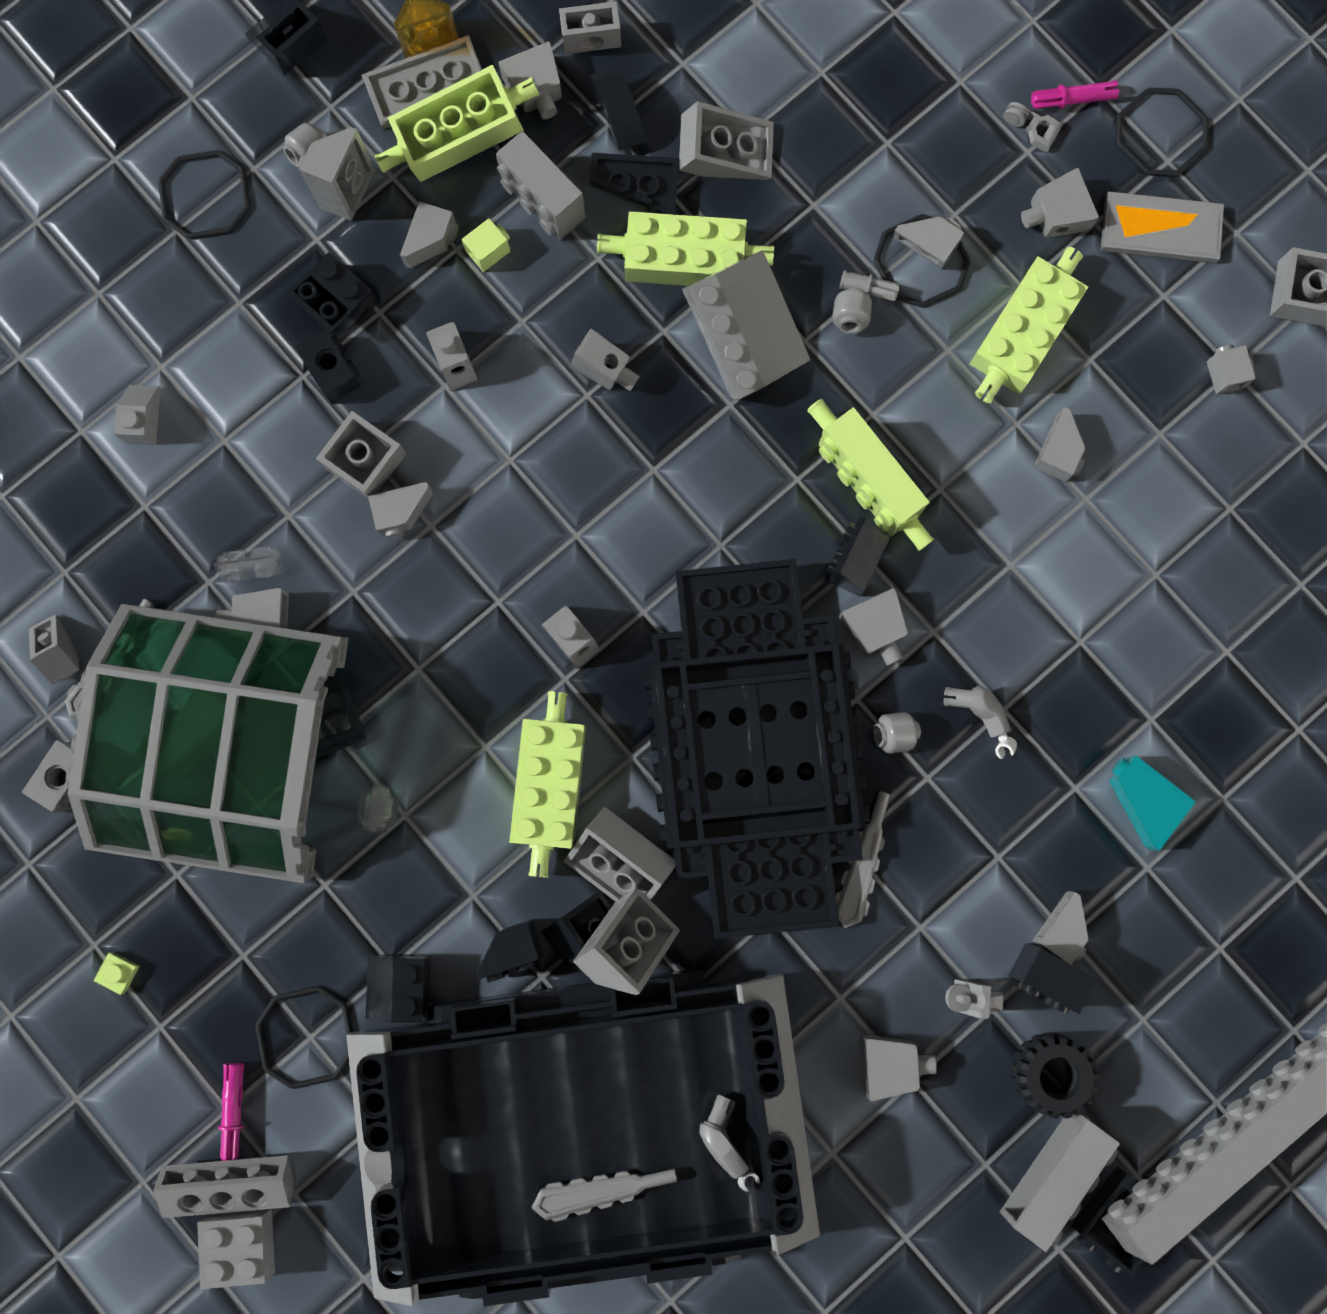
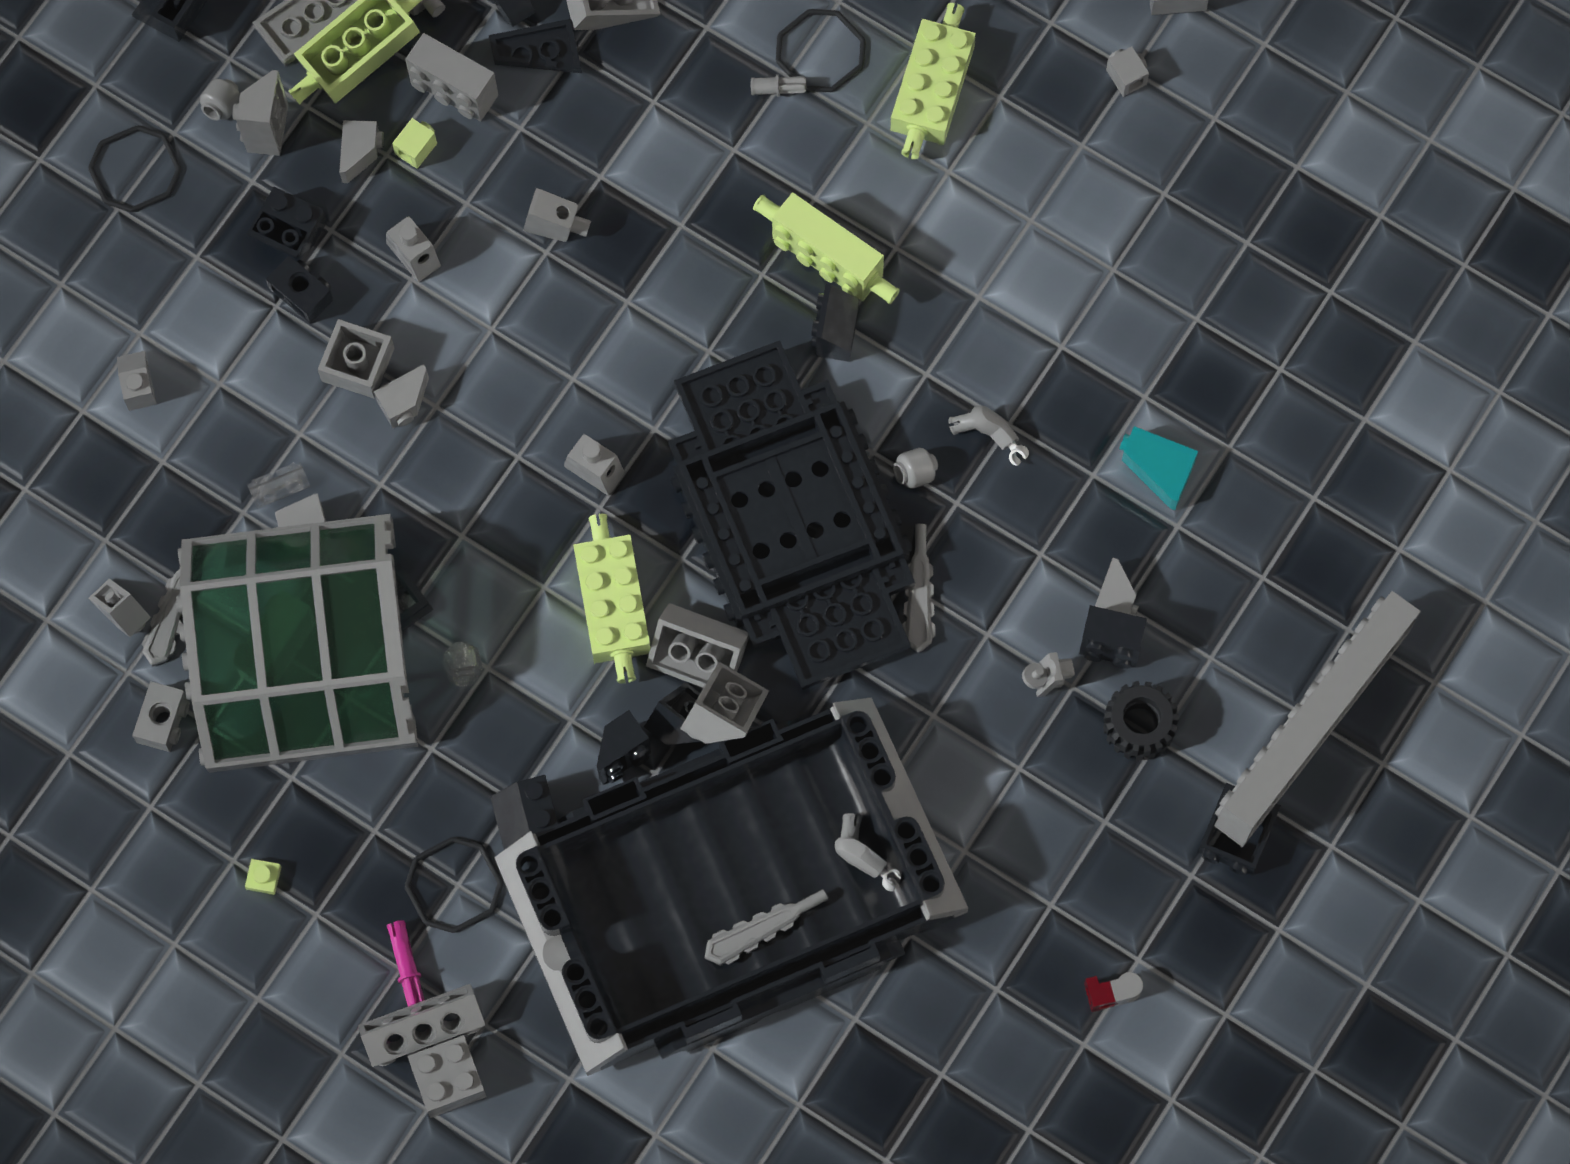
camera: 15 degrees left, 10 degrees down
(679, 247) = (600, 99): yellowish green brick -> none
(746, 325) = (676, 149): light grey slope -> none
(852, 311) = (768, 111): light grey head -> none
(877, 625) = (870, 380): light grey torso -> none
(893, 1066) = (995, 755): light grey torso -> none
(931, 238) = (823, 28): light grey slope -> none
(1059, 1180) = (1166, 806): light grey piece -> none
(1062, 448) = (994, 182): light grey slope -> none

